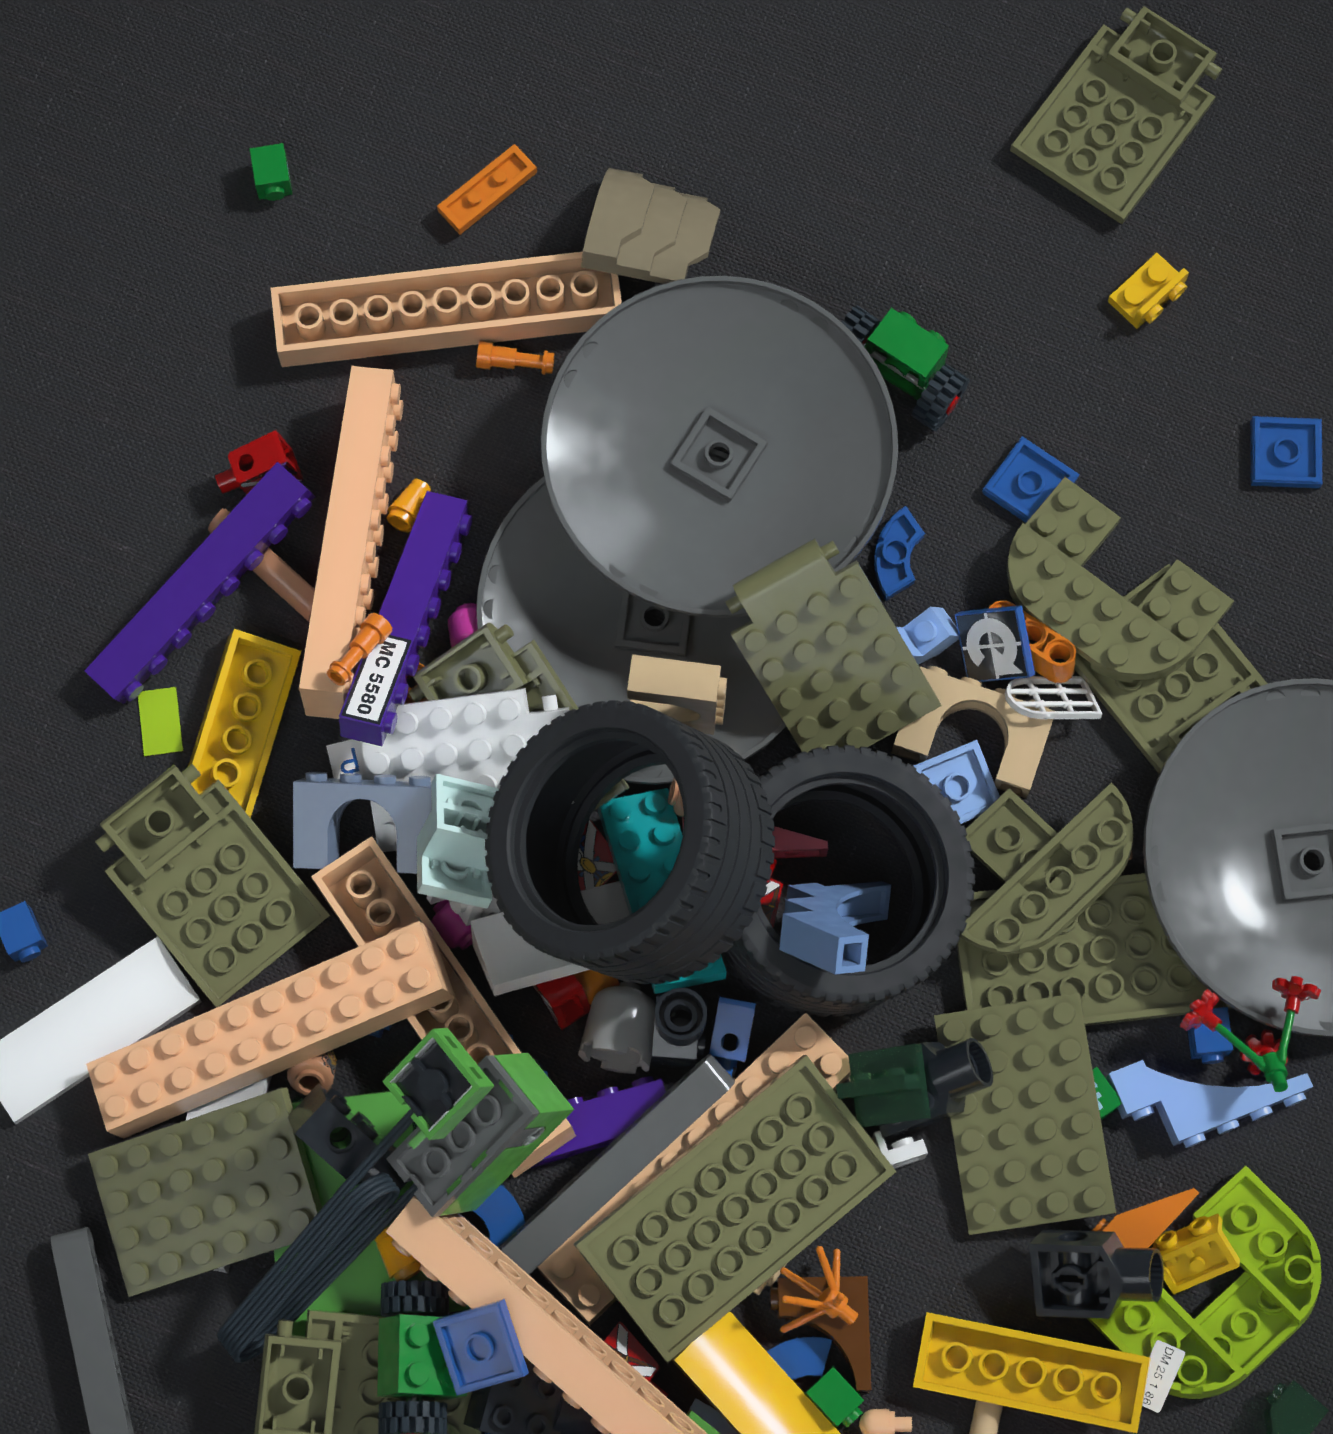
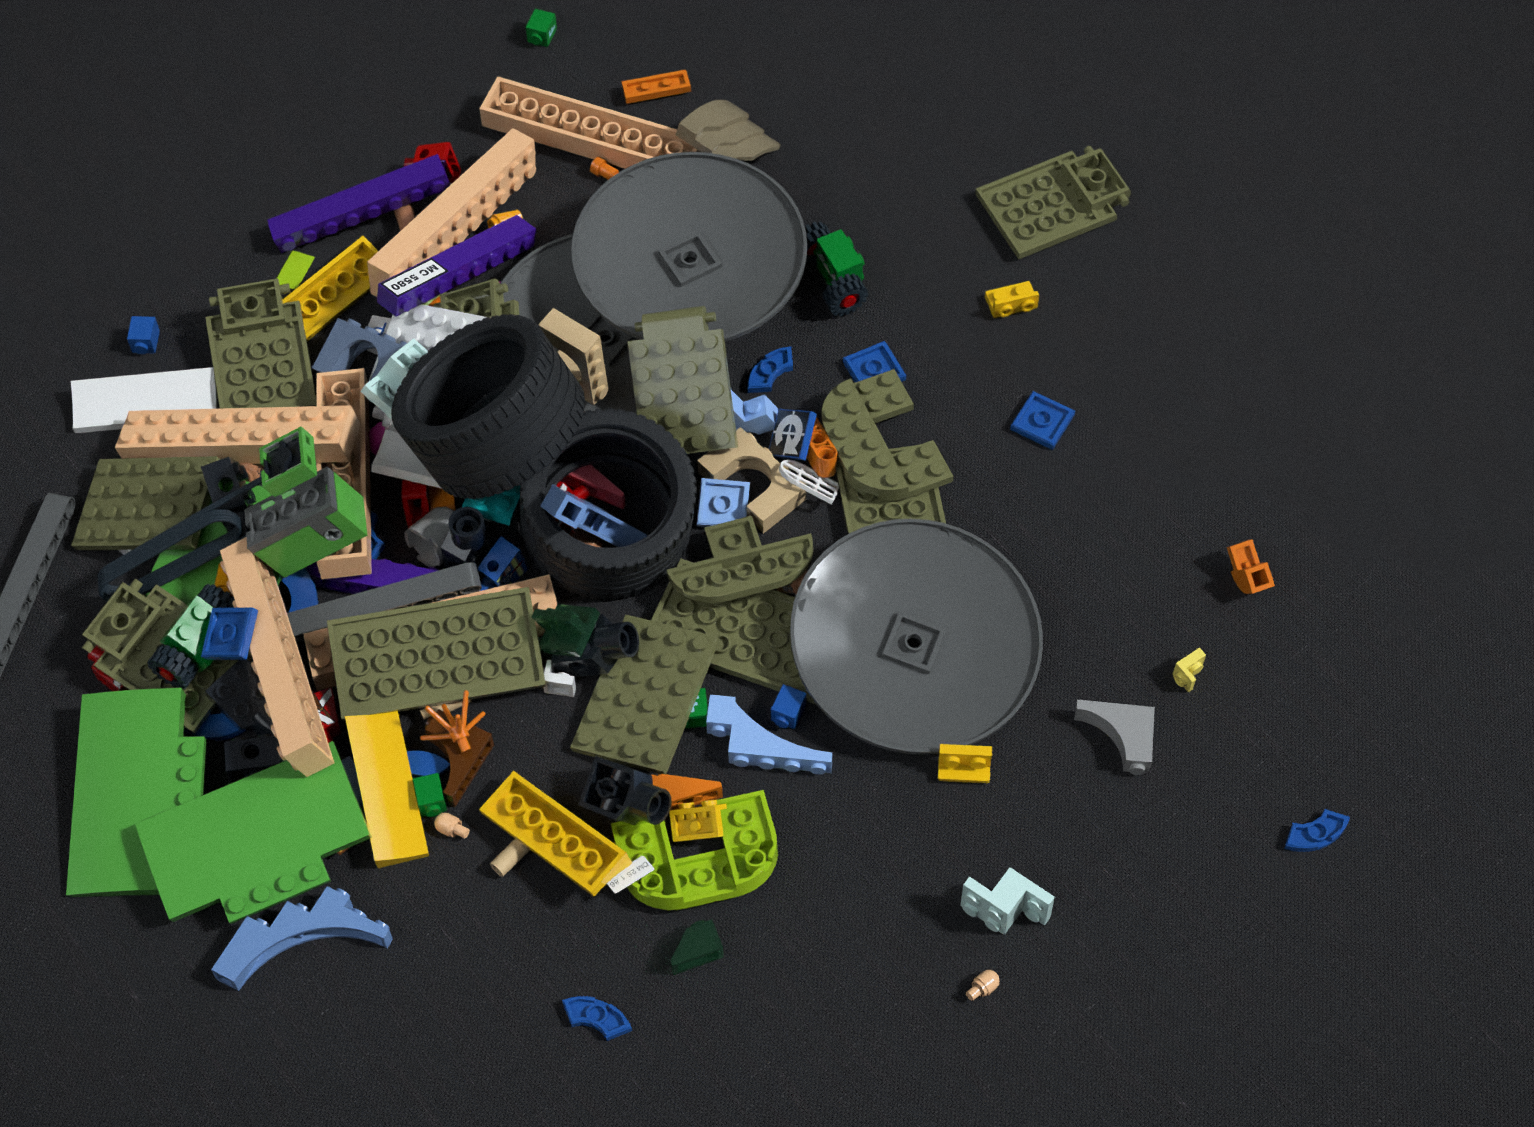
camera: 30 degrees right, 15 degrees down
(373, 631) = (428, 254): orange piece -> none
(1265, 1053) = (807, 728): red plant -> none

